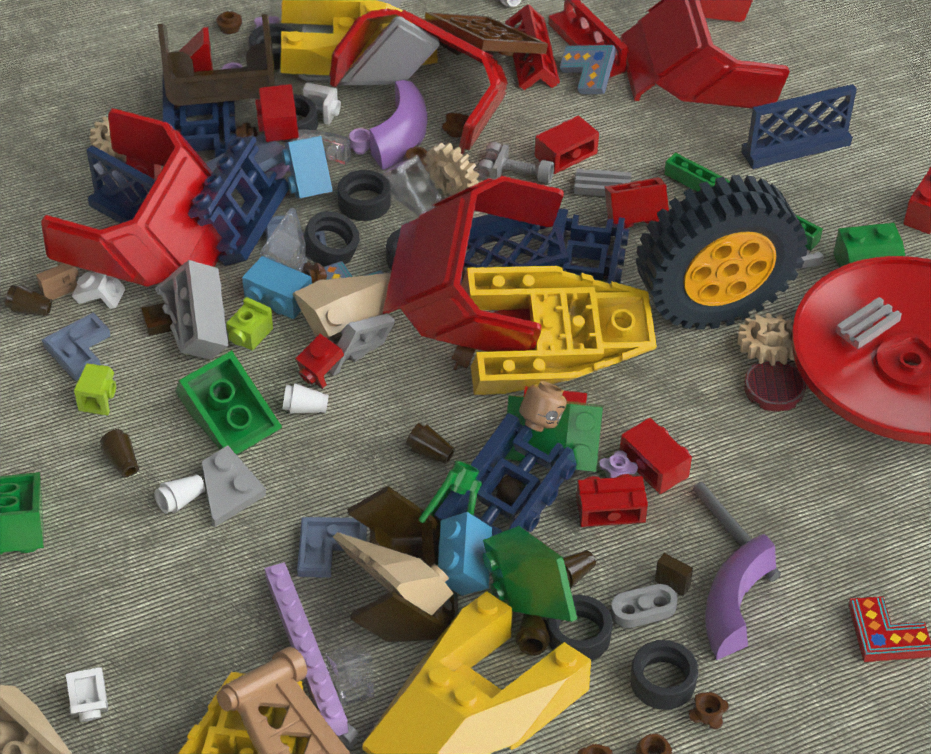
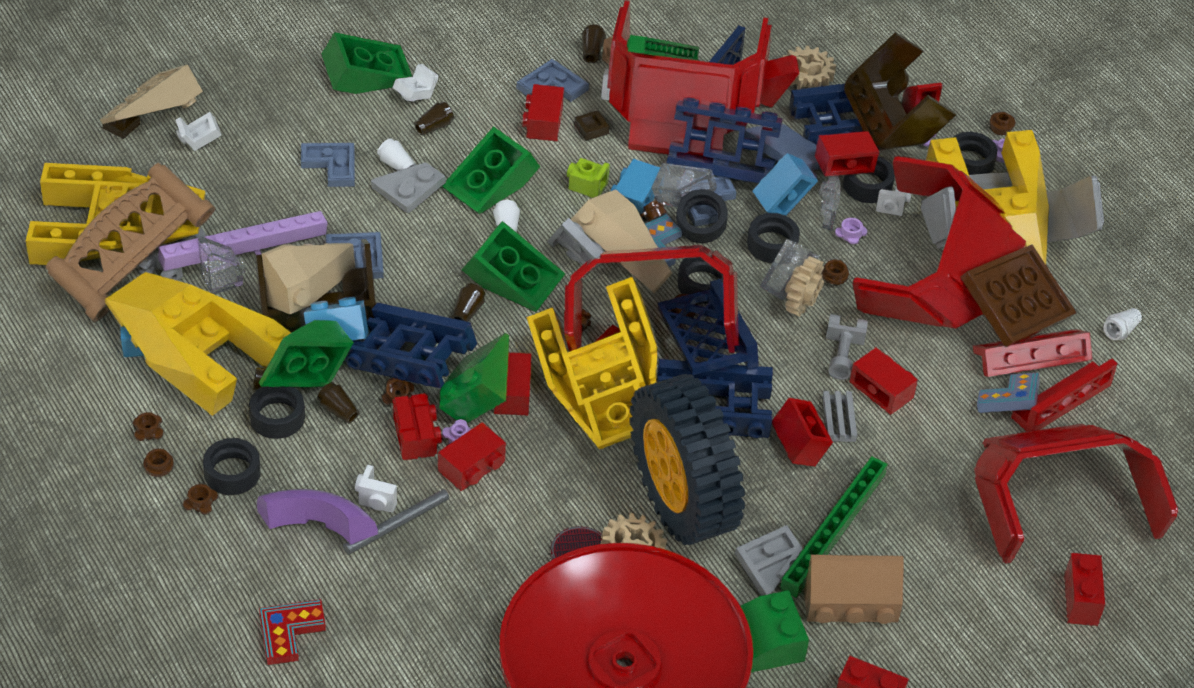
camera: 80 degrees right, 0 degrees up
(57, 463) = (418, 86): none -> white bracket
(95, 389) = (499, 94): lime brick -> none
(116, 209) = (664, 48): none -> green piece
(137, 350) = (544, 112): none -> red brick
(161, 554) = (336, 157): none -> sand blue tile
(196, 309) = (586, 136): light grey wedge -> none
(318, 360) = (545, 218): red bracket -> none
(380, 401) = (513, 268): none -> green slope
(403, 129) = (881, 257): medium lavender brick -> none
(459, 479) = (397, 301): green plant -> none
(543, 406) = (475, 340): medium nougat head -> none
(562, 511) = (395, 385): none -> reddish brown plate
(642, 606) = (306, 458): light grey plate -> none
(673, 574) = (336, 470): dark brown tile -> none
(700, 549) = (375, 493): none -> white bracket
(802, 140) = (949, 567): dark blue fence -> none
(812, 60) = (1084, 589): none -> red brick
(827, 191) = (854, 588): none -> medium nougat slope
(864, 320) = (659, 609): light grey tile -> none

